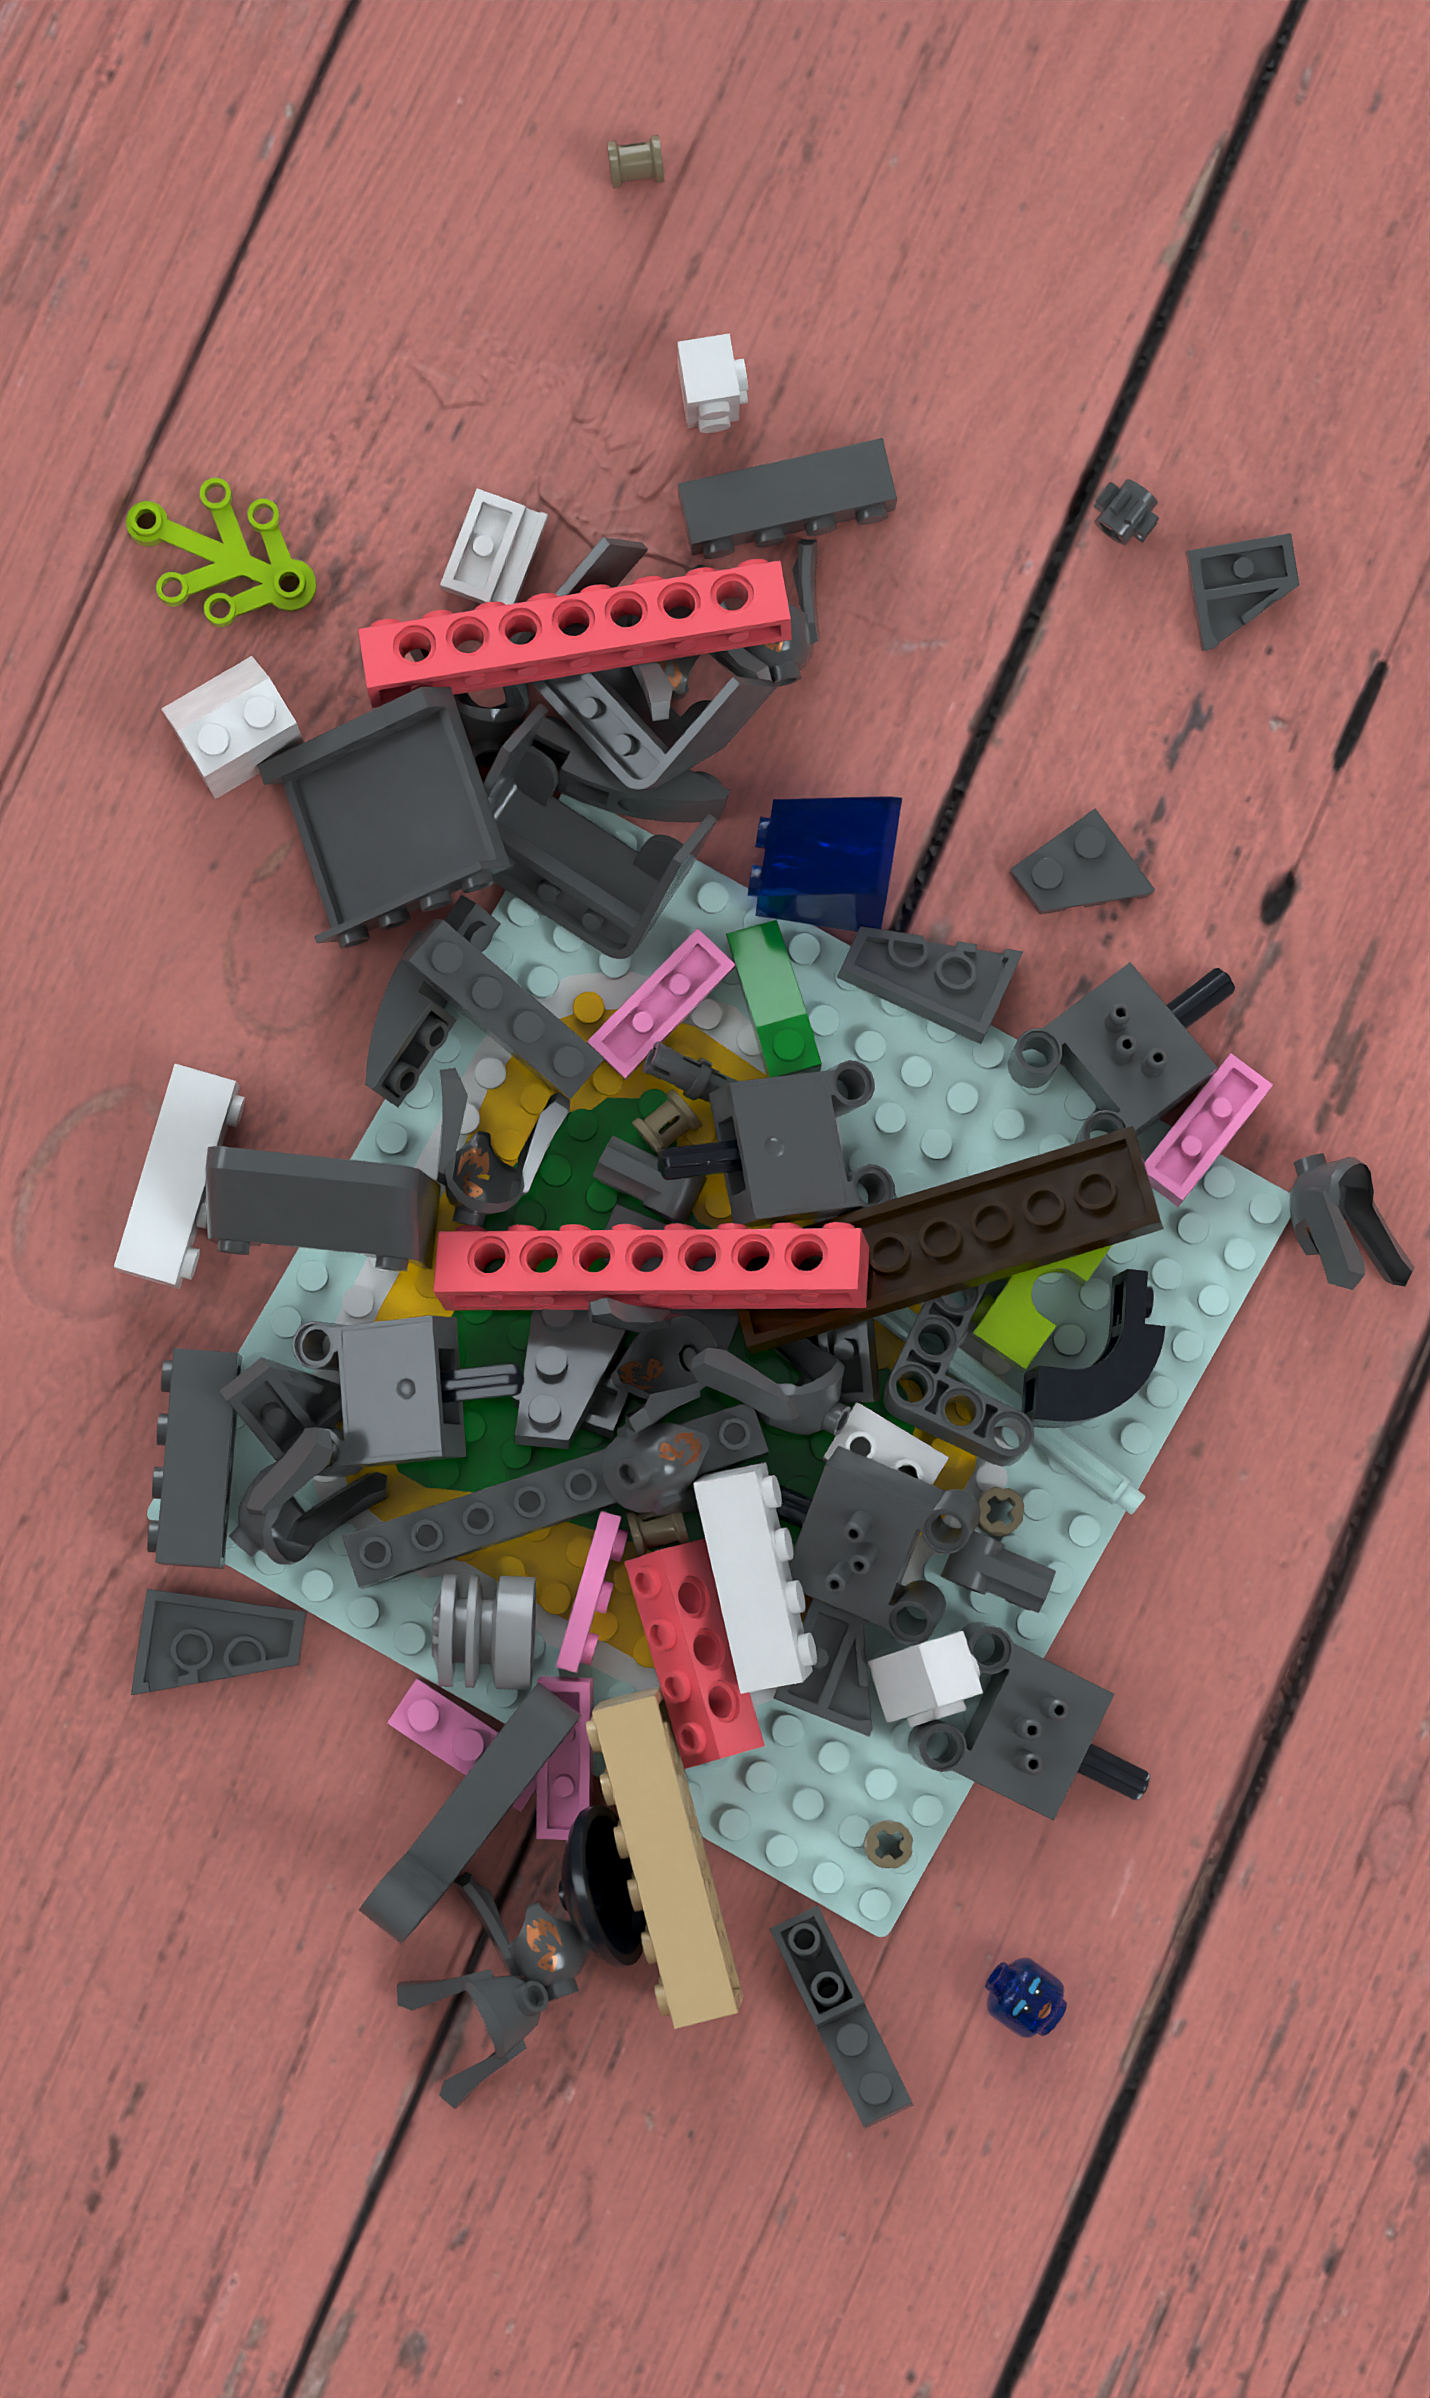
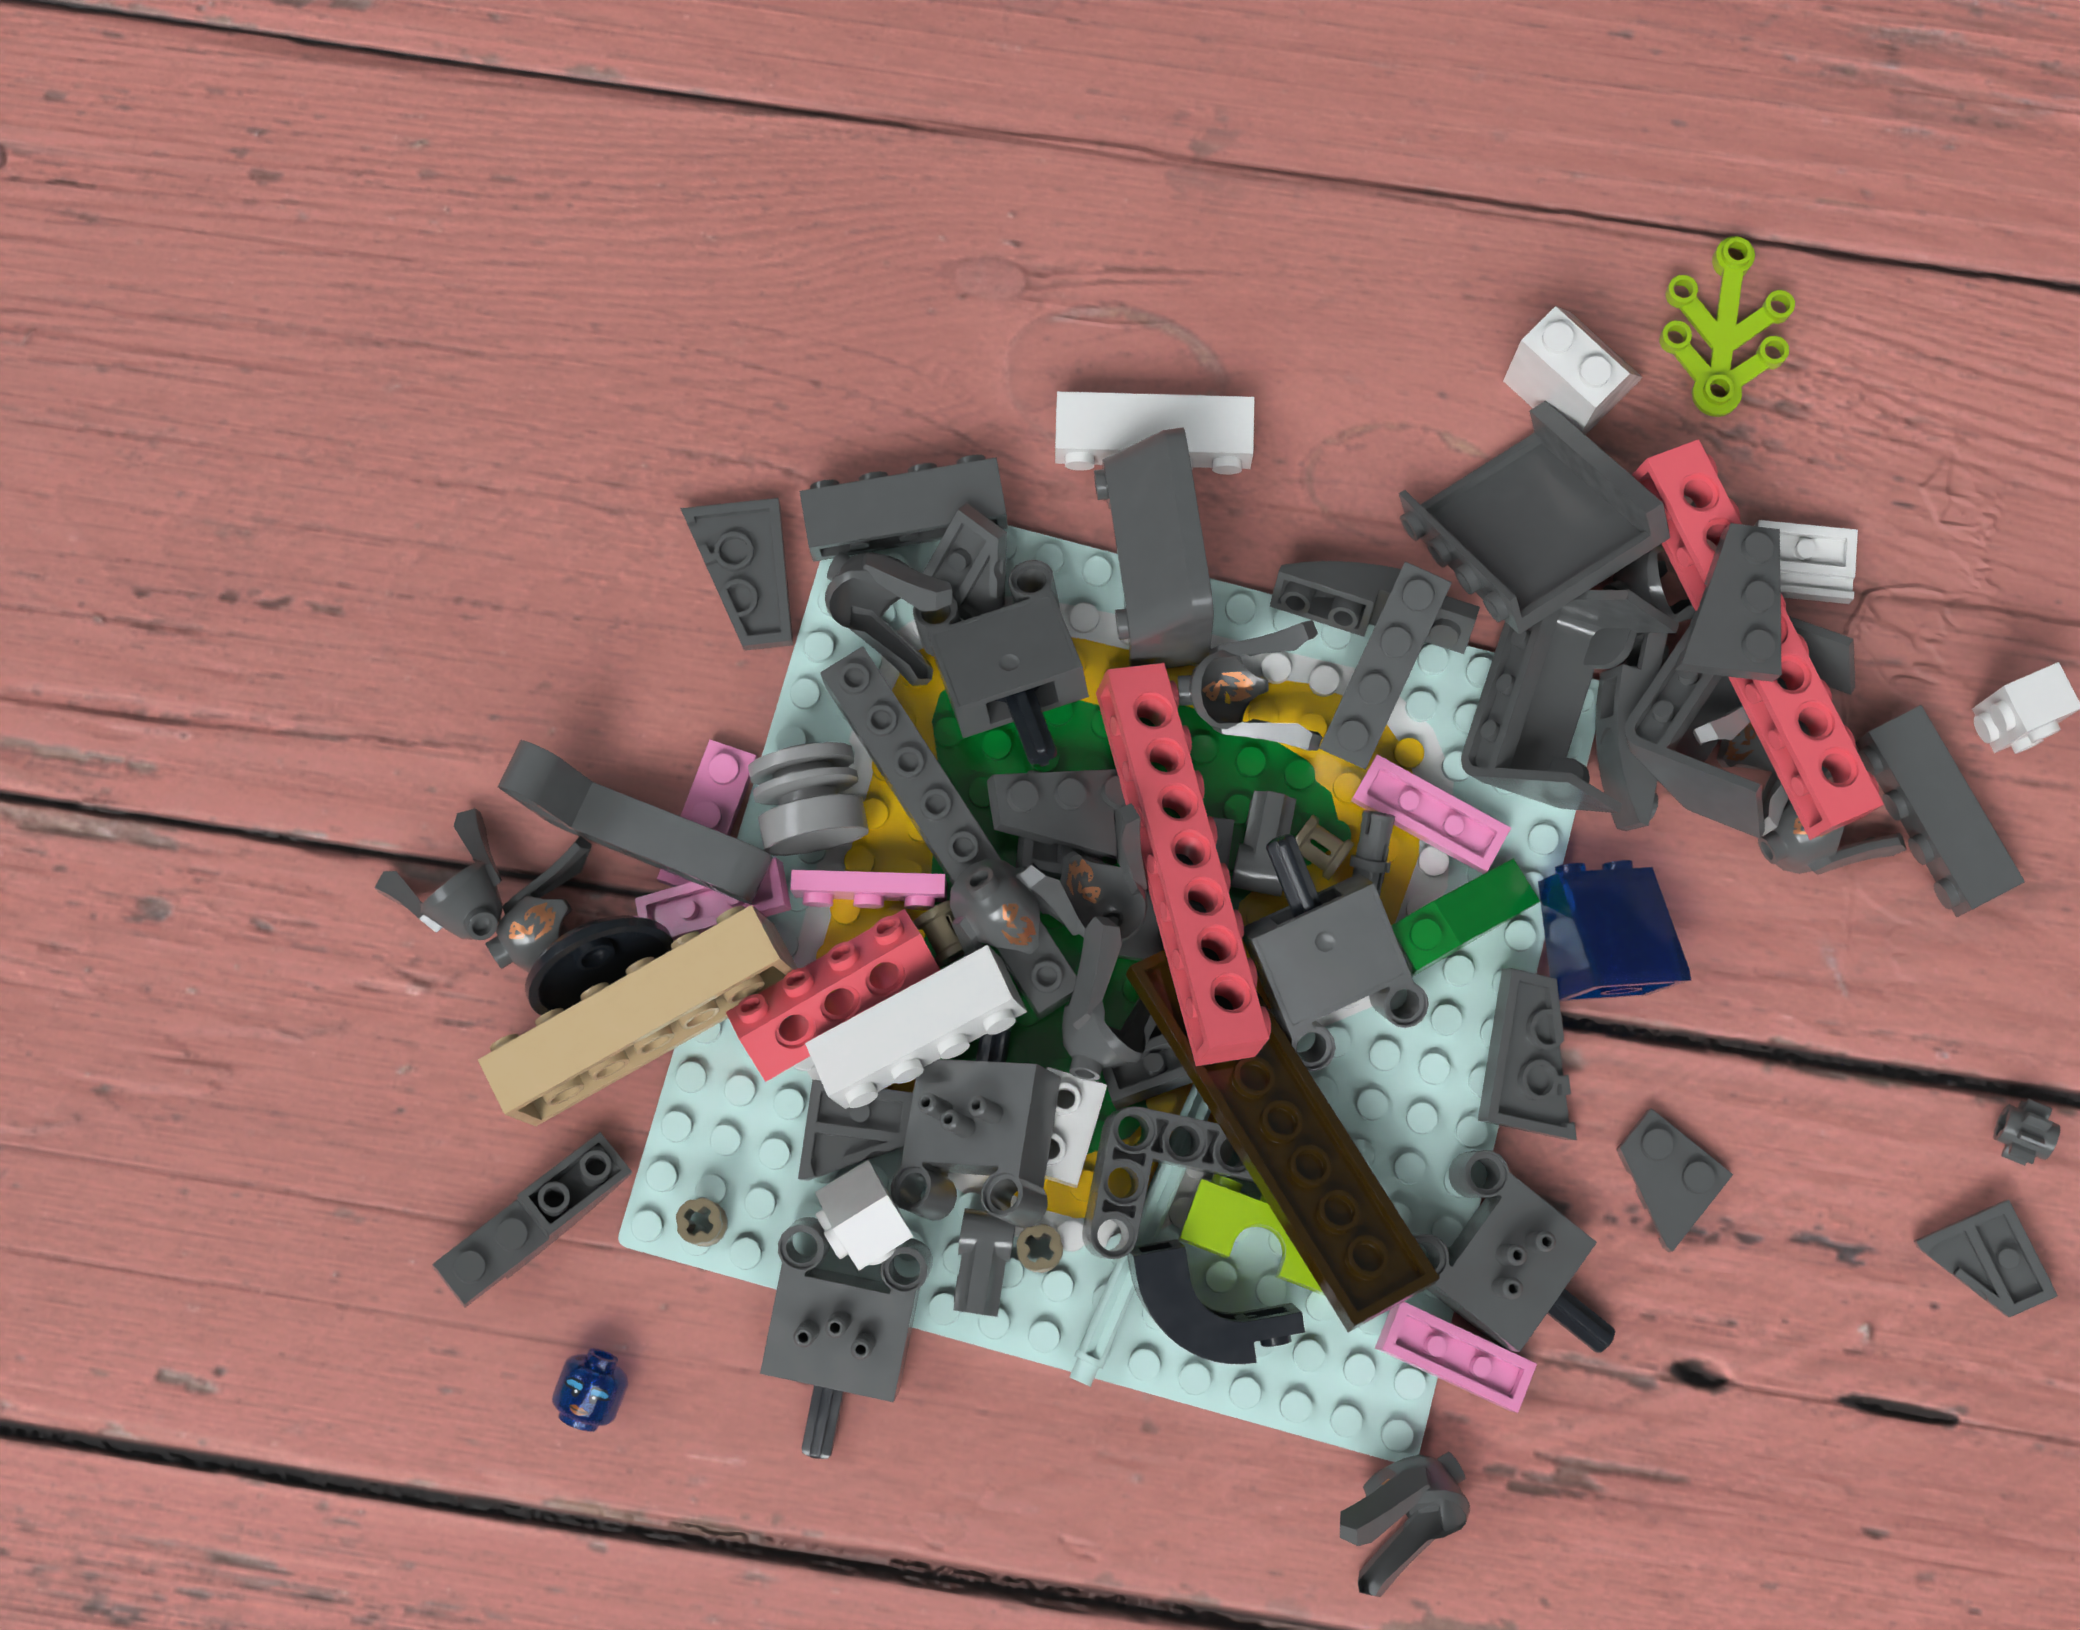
camera: 80 degrees right, 5 degrees down
(552, 643) = (1740, 611): none -> dark grey wing

